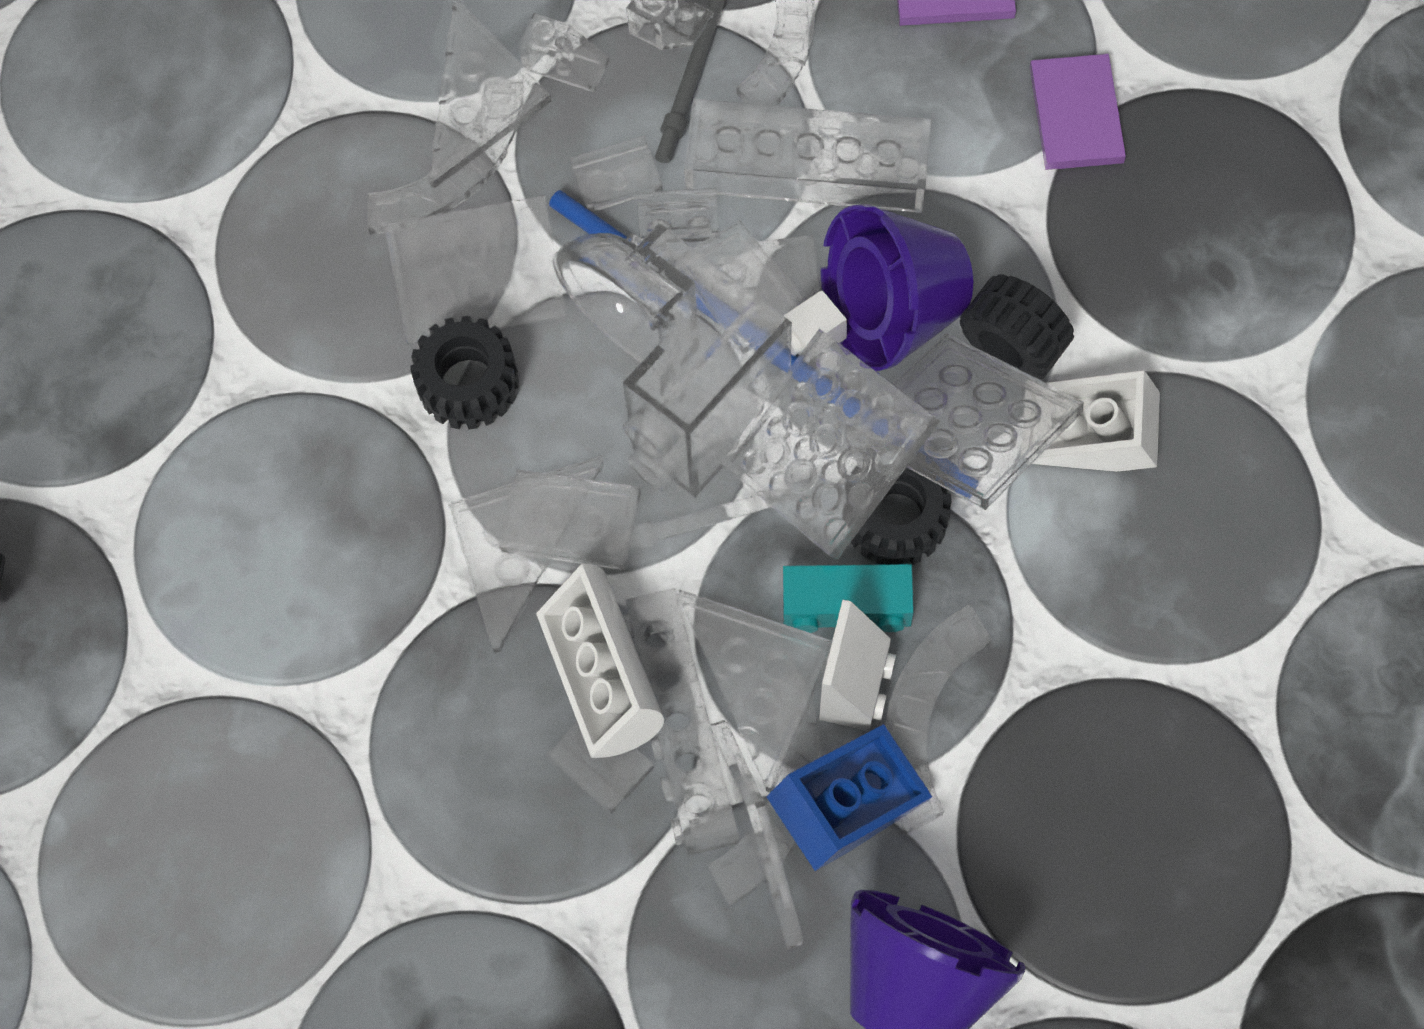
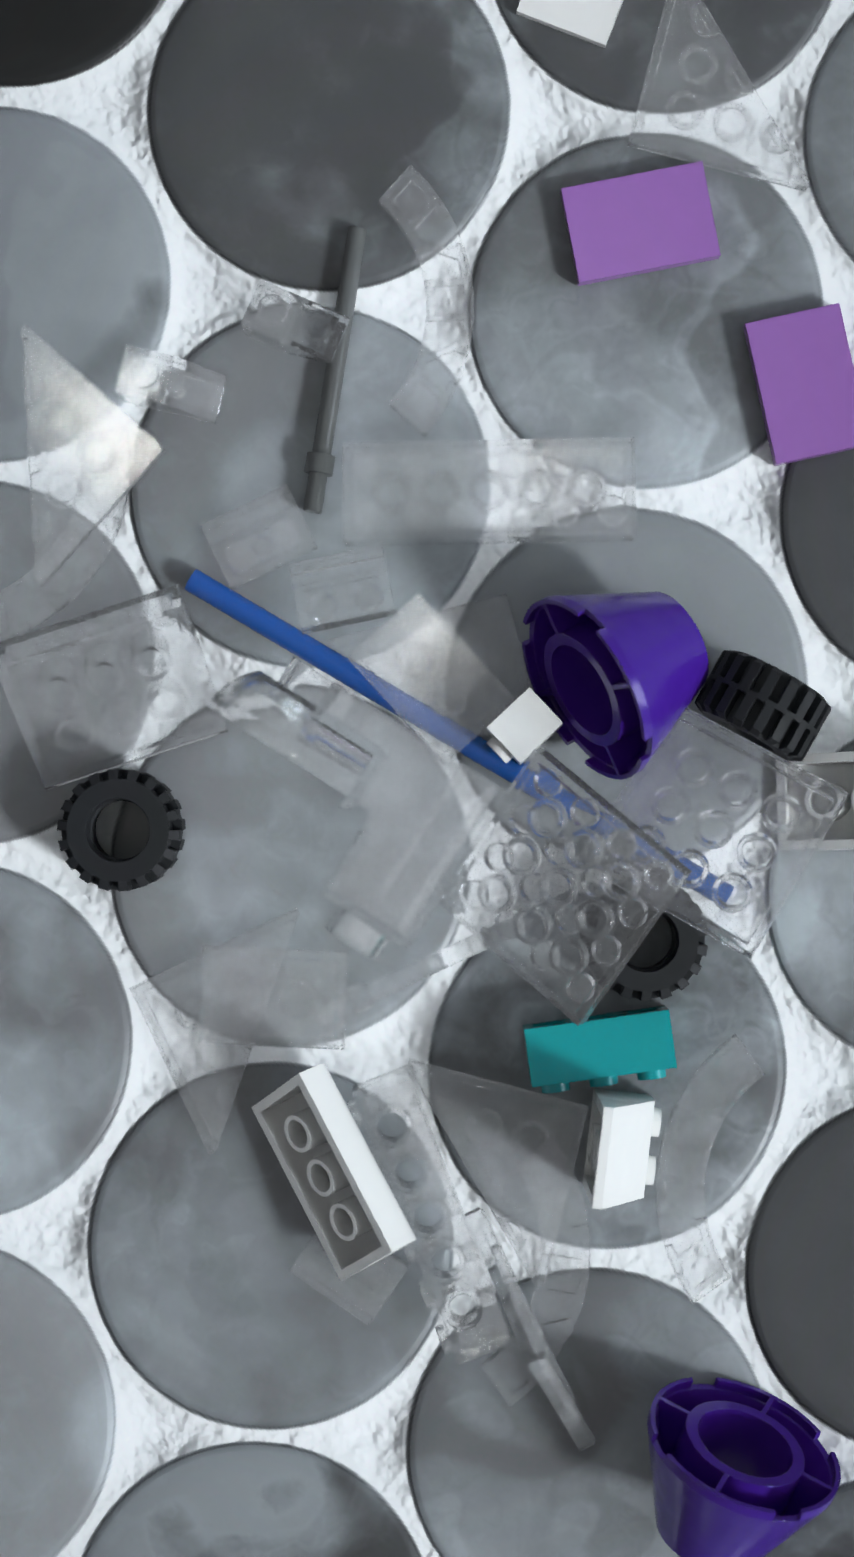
camera: 10 degrees left, 20 degrees up
(848, 796) = (628, 1285): blue slope -> none

